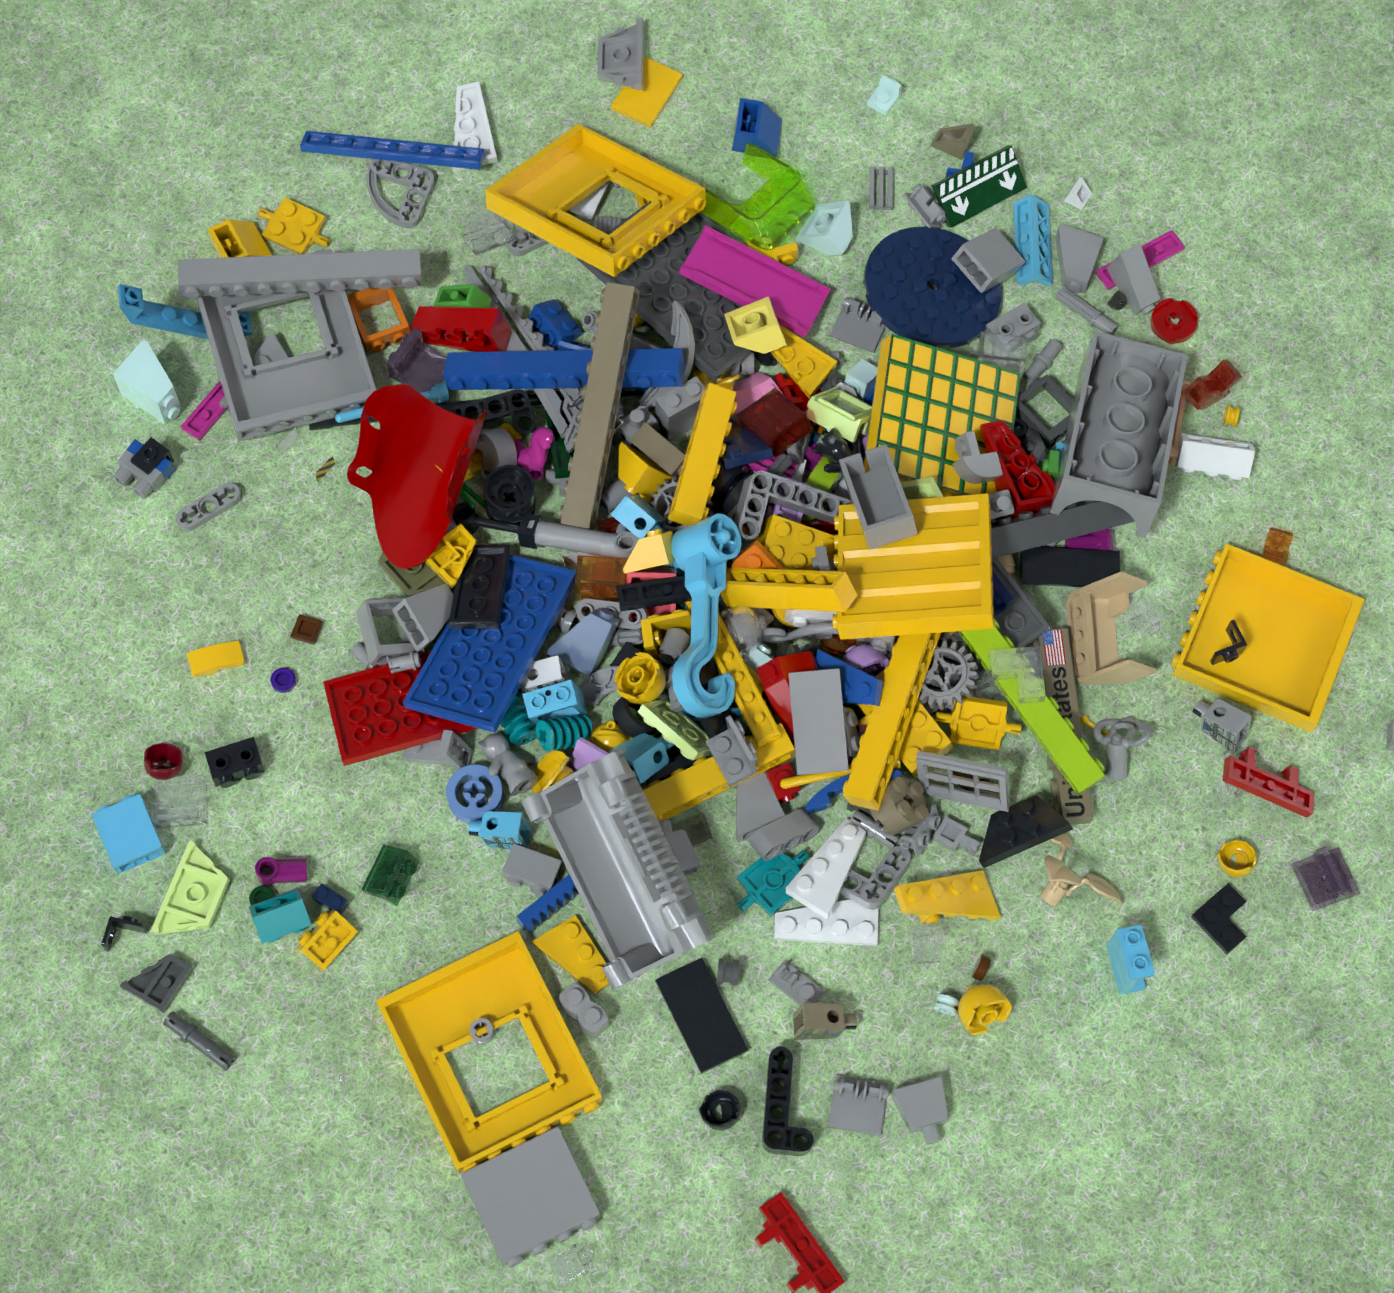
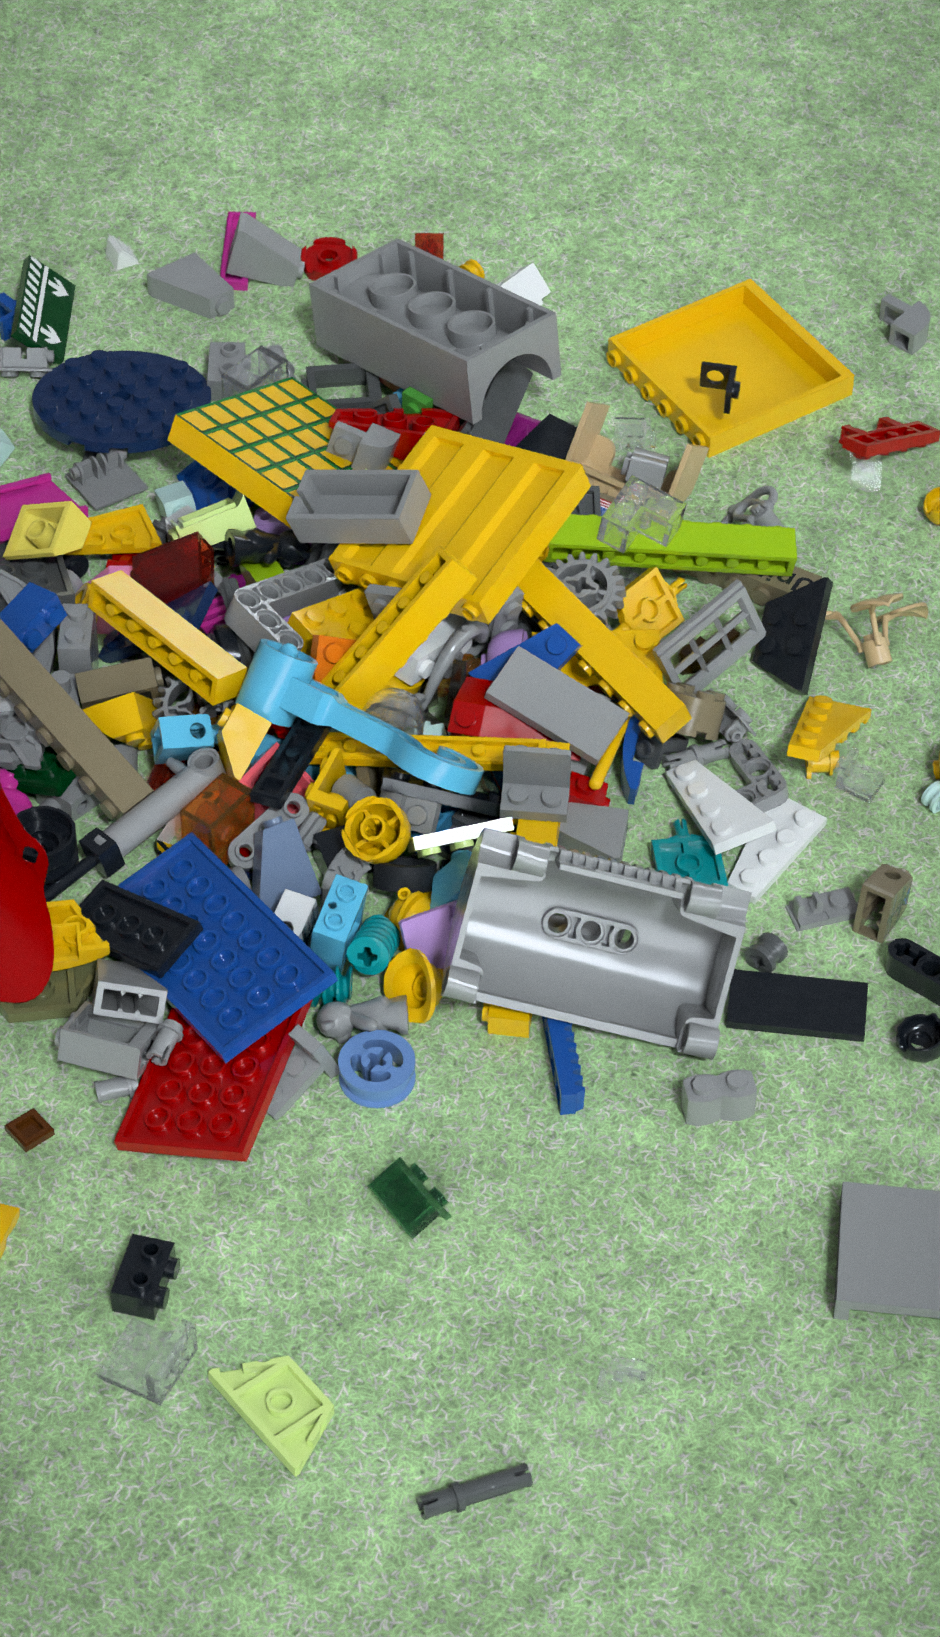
camera: 55 degrees left, 20 degrees down
(126, 923) = (261, 1493): black bracket -> none
(128, 833) = (145, 1431): medium azure brick -> none
(159, 754) = (81, 1339): dark red hair -> none
(159, 982) = (367, 1497): dark grey wing -> none
(260, 894) = (339, 1341): dark green tile -> none
(280, 916) = (382, 1323): teal brick -> none
(283, 680) = (74, 1184): dark purple tile -> none
(284, 871) = (321, 1300): magenta piece -> none
(326, 939) = (441, 1298): yellow bracket -> none
(330, 899) = (396, 1271): dark blue piece -> none
(436, 1018) = (628, 1208): yellow panel -> none
(480, 1022) = (675, 1197): light grey bush -> none
(506, 830) = (445, 1058): medium azure torso -> none
(531, 869) = (511, 1062): light grey brick -> none
(575, 953) = (639, 1077): yellow wing -> none
(783, 834) = (647, 822): light grey beam -> none
(953, 835) = (756, 698): light grey plate -> none
(981, 967) = (916, 749): reddish brown tile -> none
(988, 260) = (138, 340): light grey brick -> none
(1029, 239) = (139, 311): medium azure fence -> none
(1086, 311) = (259, 313): light grey axle -> none
(1114, 643) = (646, 466): none -> light grey brick
(1117, 301) = (267, 286): clear smoke hinge -> none
(1224, 723) = (798, 437): light grey torso -> none
(1277, 546) = (635, 312): clear orange bracket -> none

